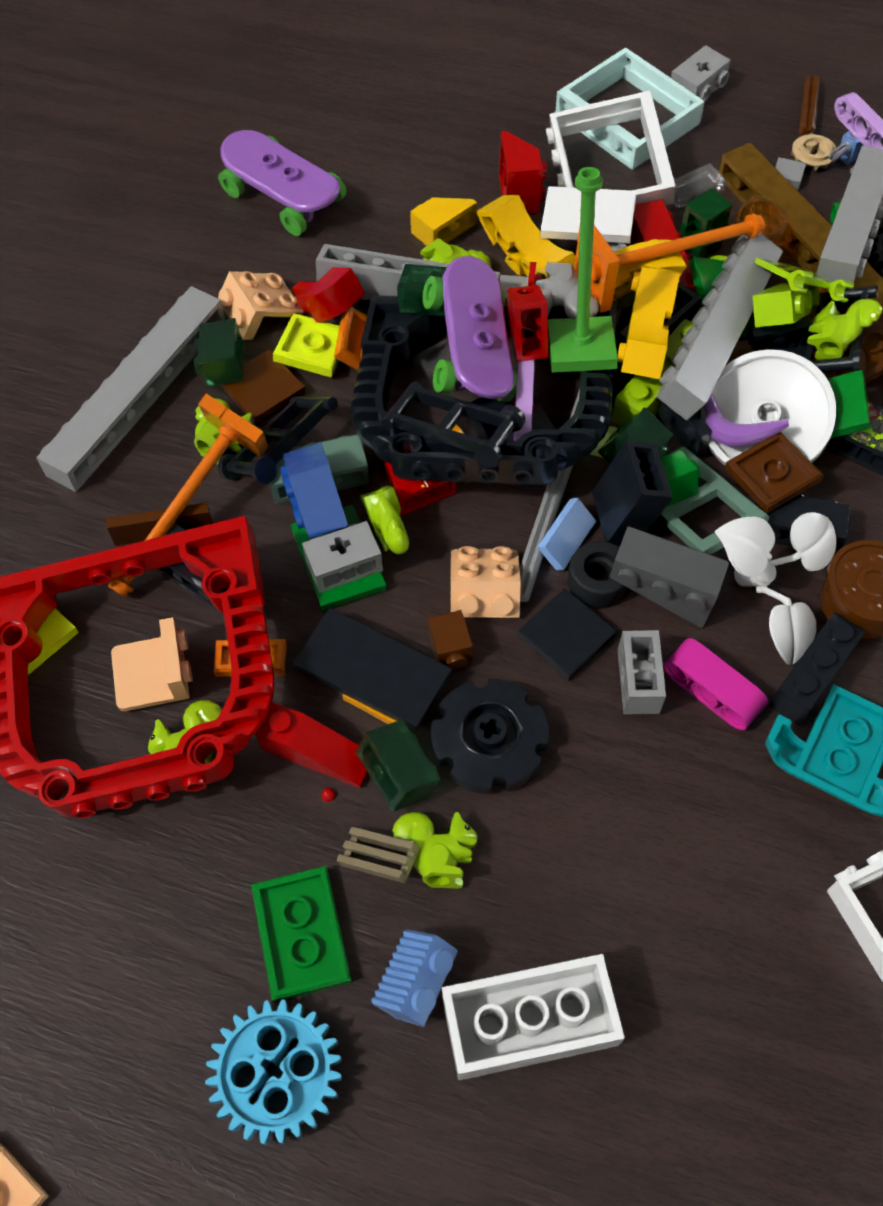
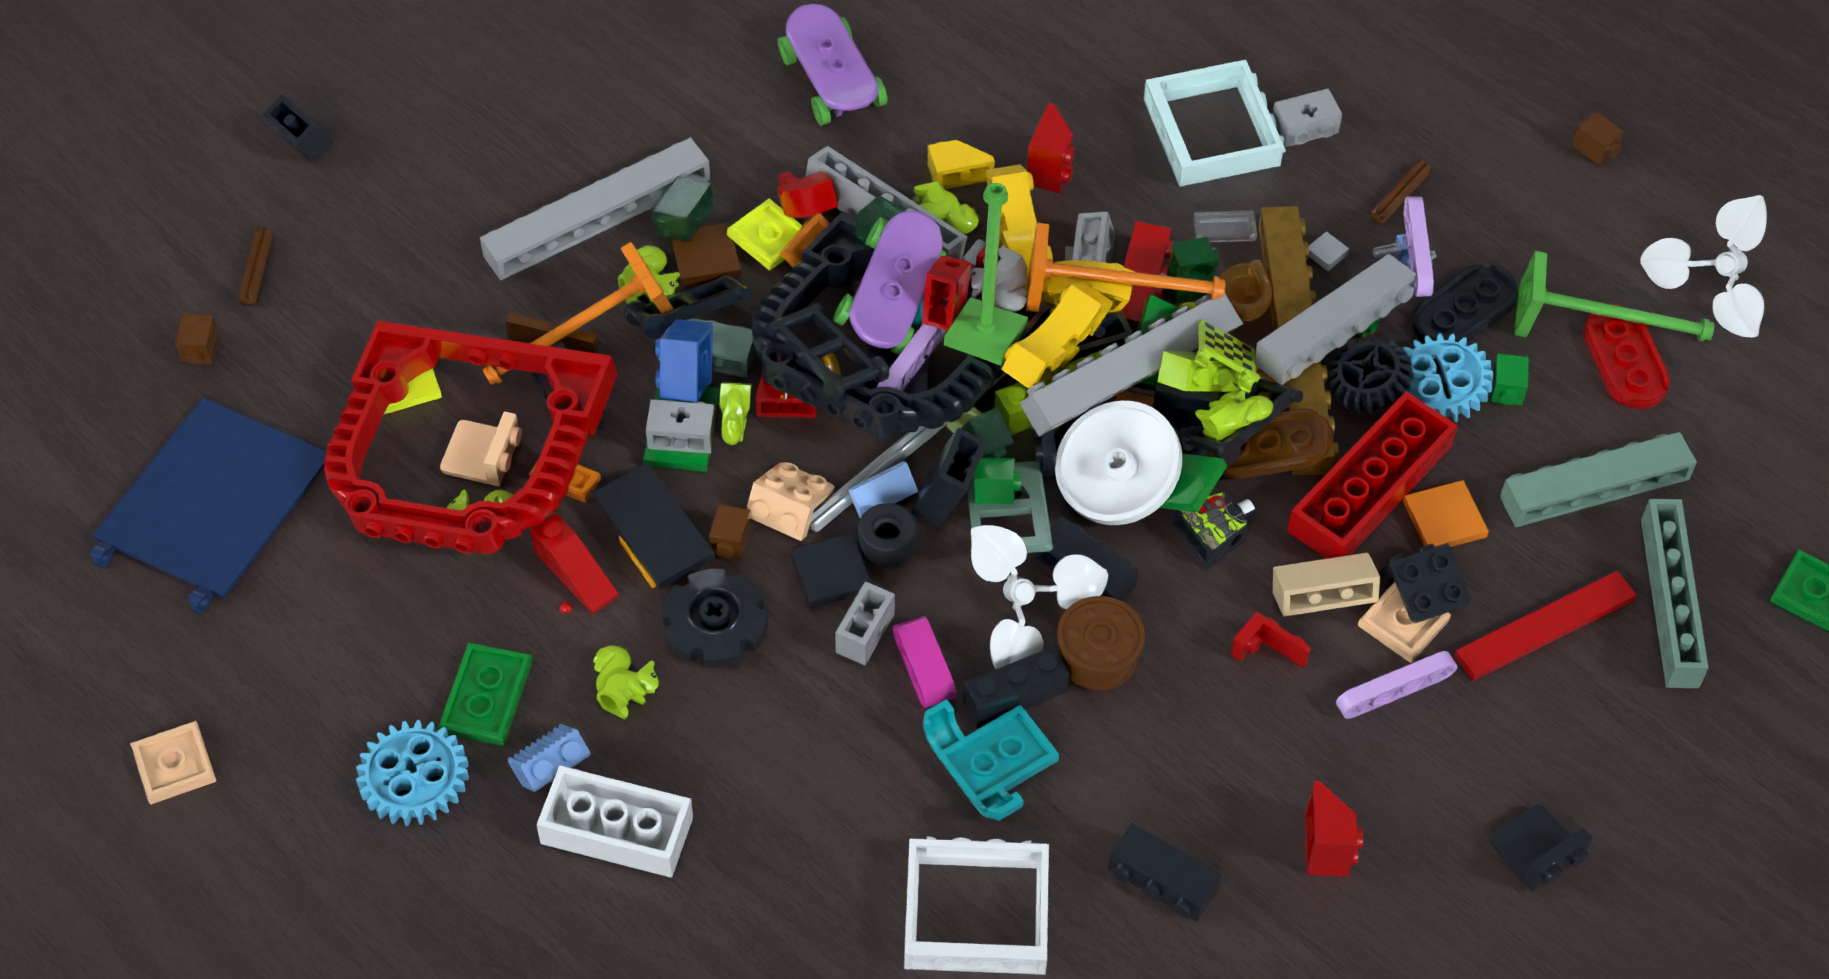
camera: 25 degrees right, 5 degrees down
(256, 295) = (746, 170): light nougat bracket -> none
(353, 846) = (563, 652): dark tan tile -> none
(397, 765) = (628, 605): clear green brick -> none
(610, 113) = (1158, 121): white window -> none
(612, 214) = (1085, 215): white tile -> none
(670, 574) = (935, 557): dark grey wedge -> none
(738, 434) = (1075, 466): medium lavender piece -> none
(773, 472) = (1087, 513): reddish brown tile -> none
(809, 143) = (1370, 231): tan gear -> none

